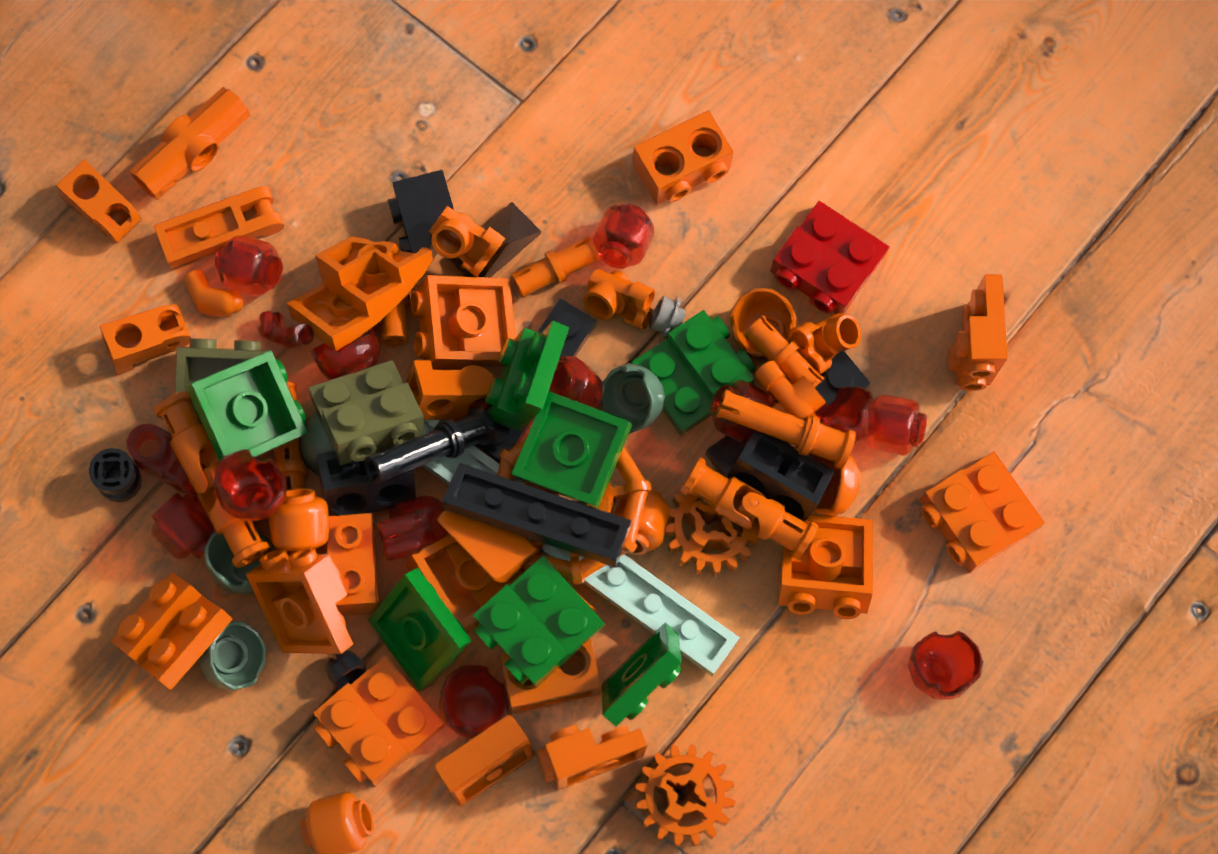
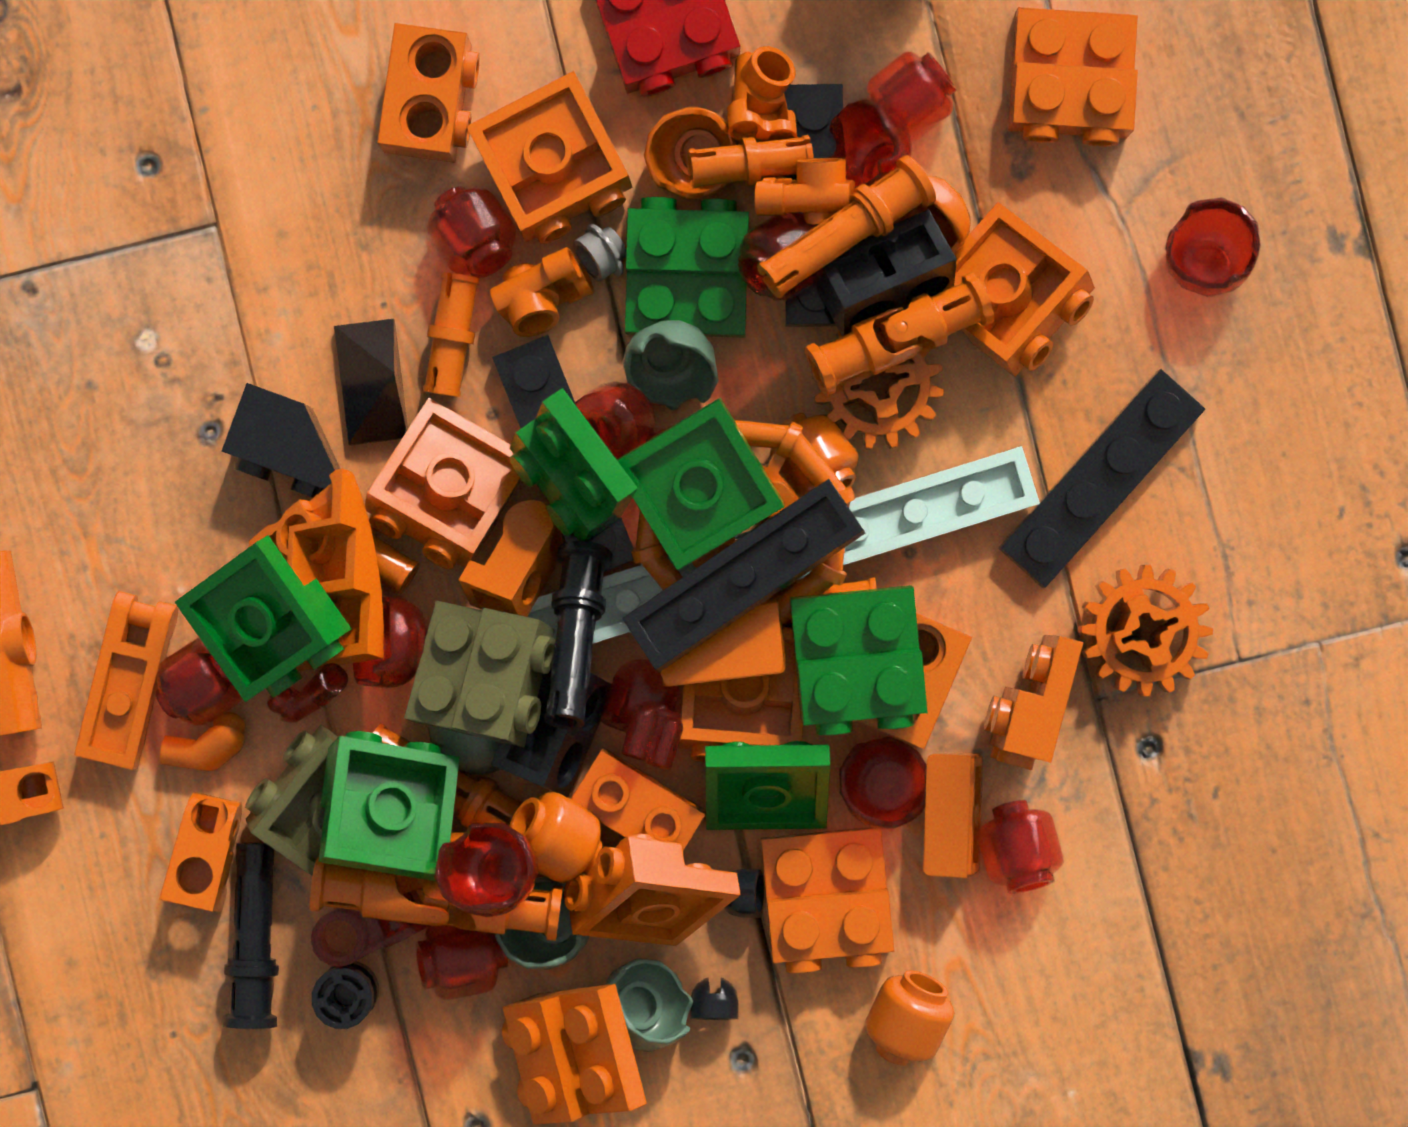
camera: 50 degrees left, 15 degrees up
(95, 410) = (252, 964): none -> black pin
(261, 701) = (714, 1005): none -> black hinge
(309, 268) = (263, 620): none -> green plate
(458, 236) = (351, 422): orange plate -> none
(493, 817) = (1020, 847): none -> clear red head
(650, 666) = (994, 587): green plate -> none
(698, 250) = (551, 159): none -> orange plate
(758, 704) = (1101, 478): none -> black plate

